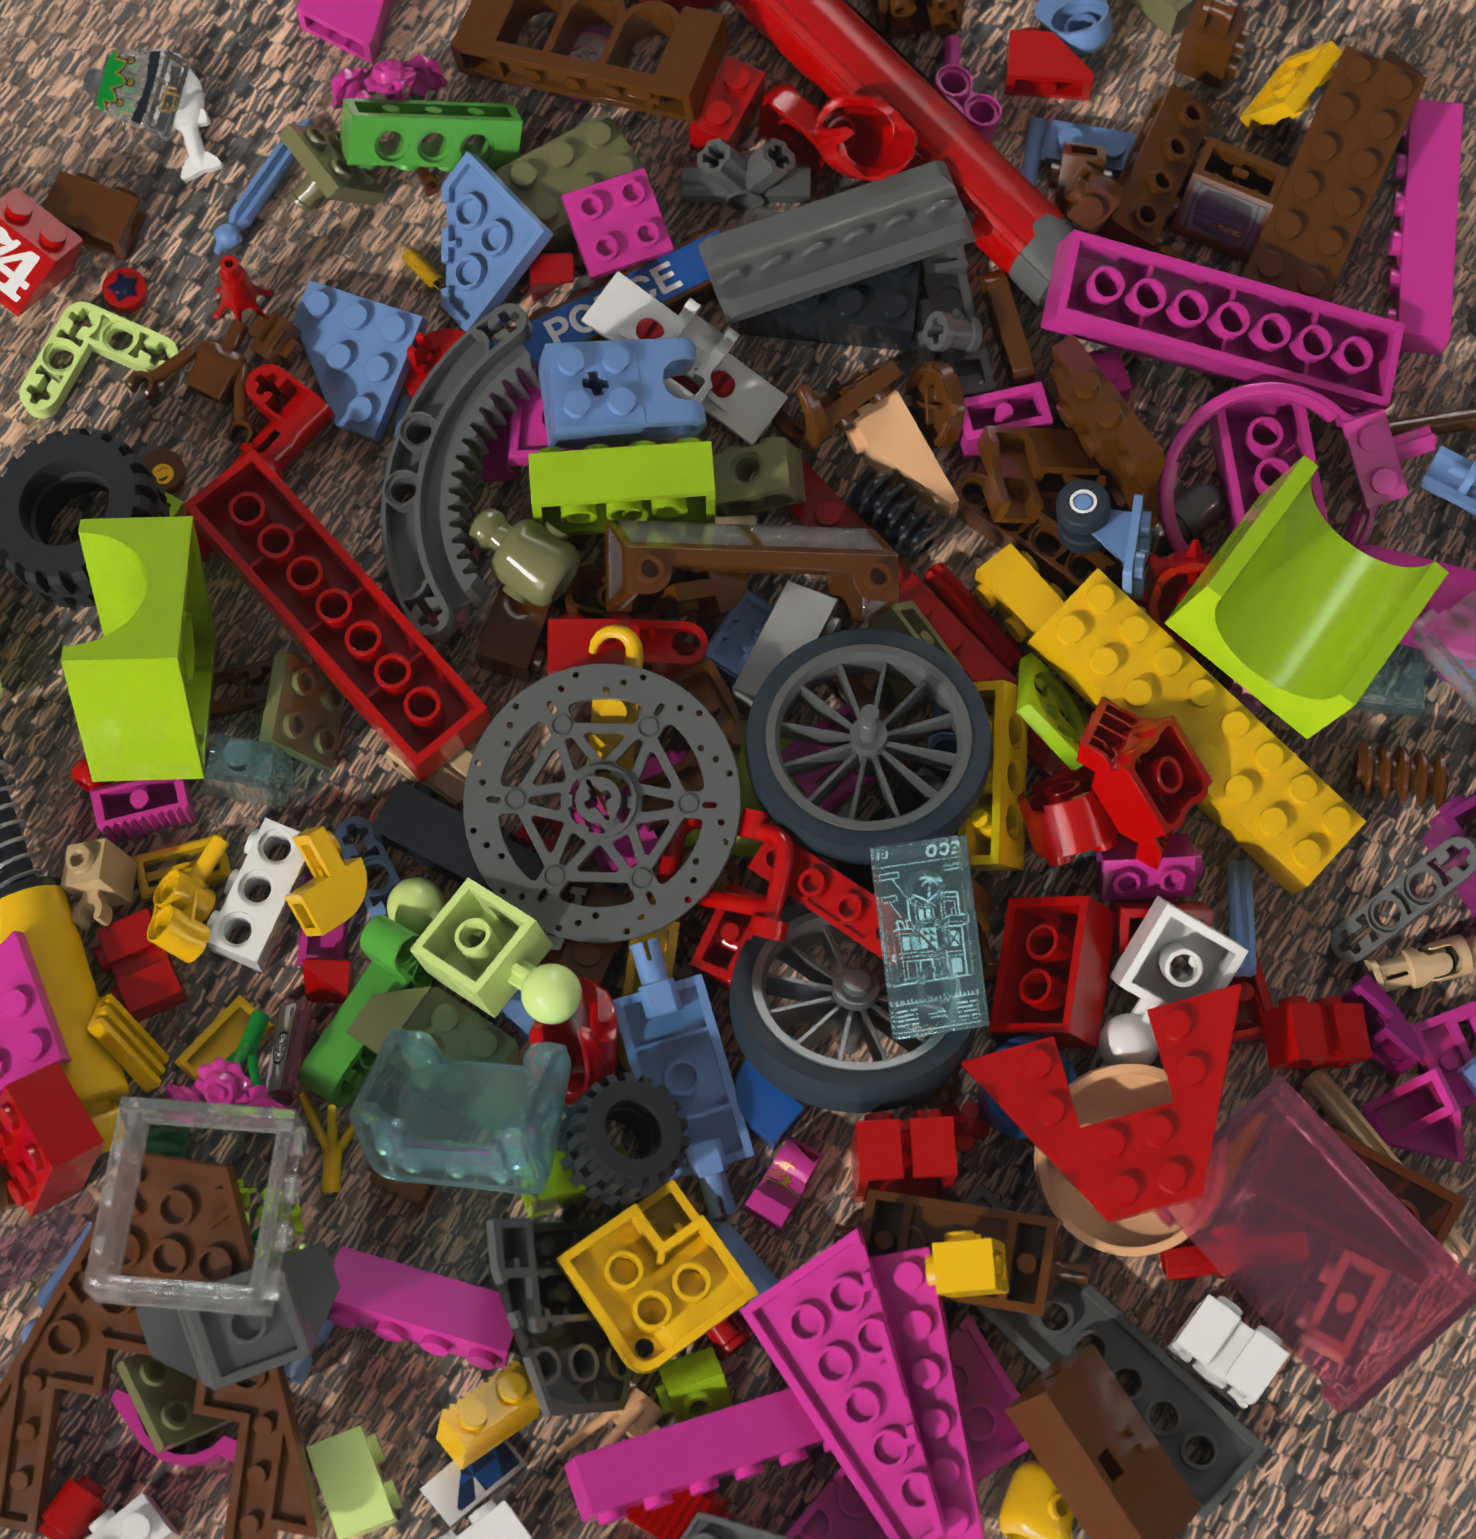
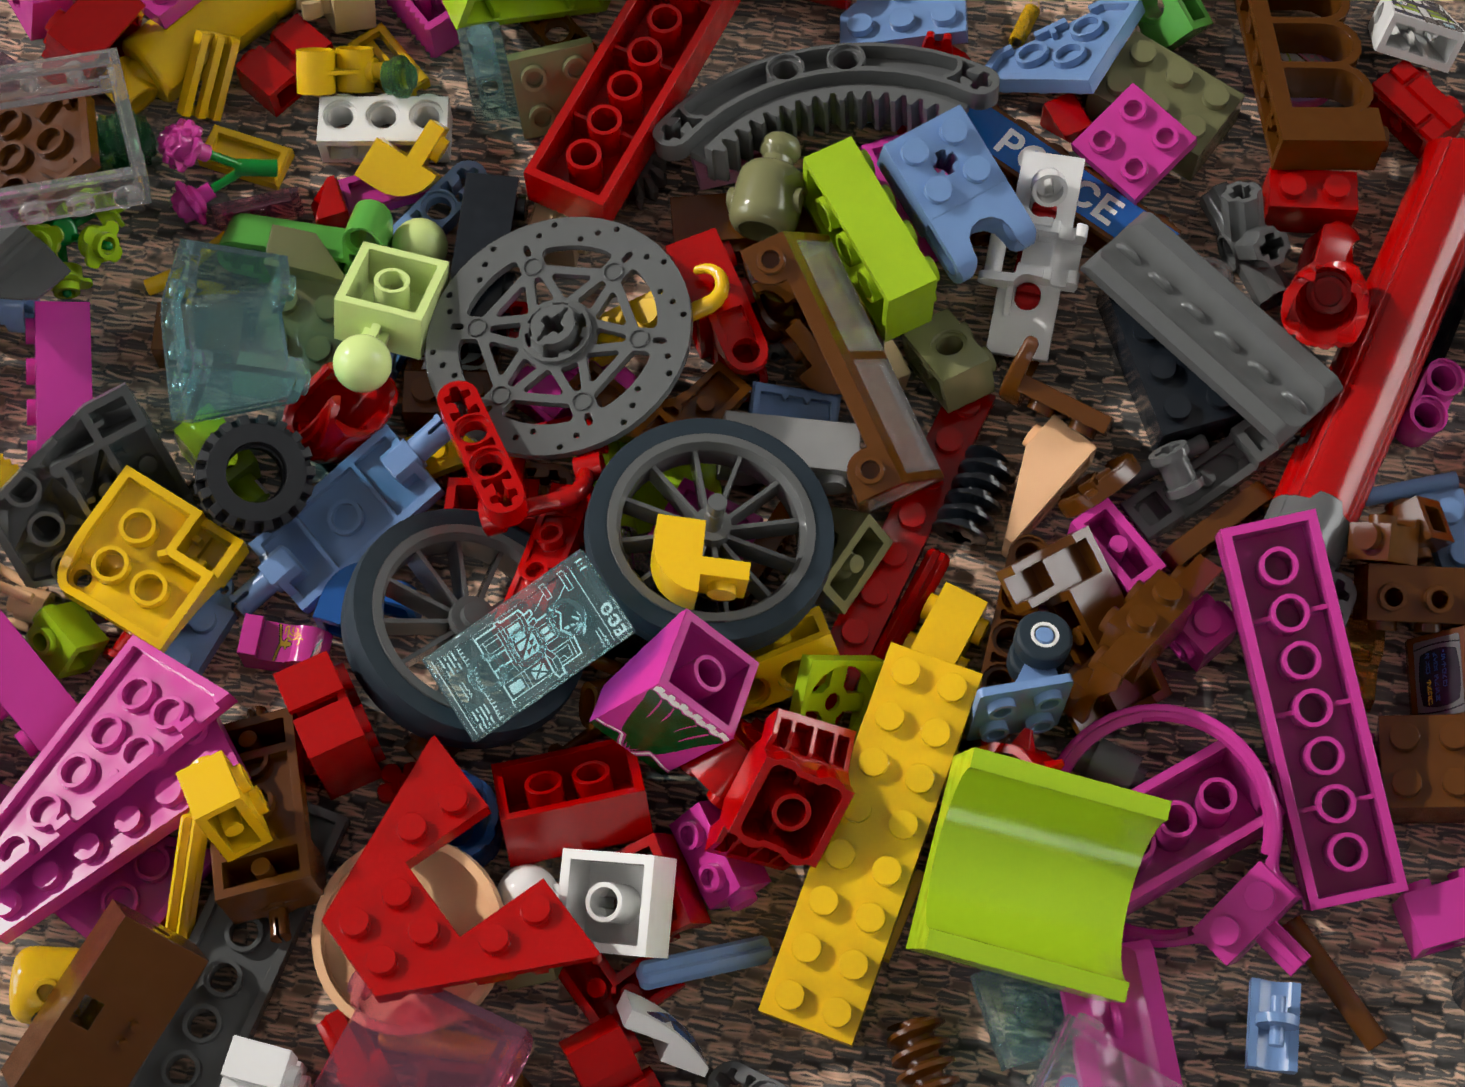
camera: 70 degrees right, 5 degrees down
(229, 853) = (398, 77): none -> clear green plate
(640, 305) = (1059, 186): none -> white hinge
(706, 911) = (479, 453): none -> red beam
(909, 771) = (683, 571): none -> yellow brick
(991, 1342) = (186, 877): none -> yellow axle
(1017, 830) = (677, 694): none -> dark pink slope
(1296, 974) = (670, 1038): none -> white slope

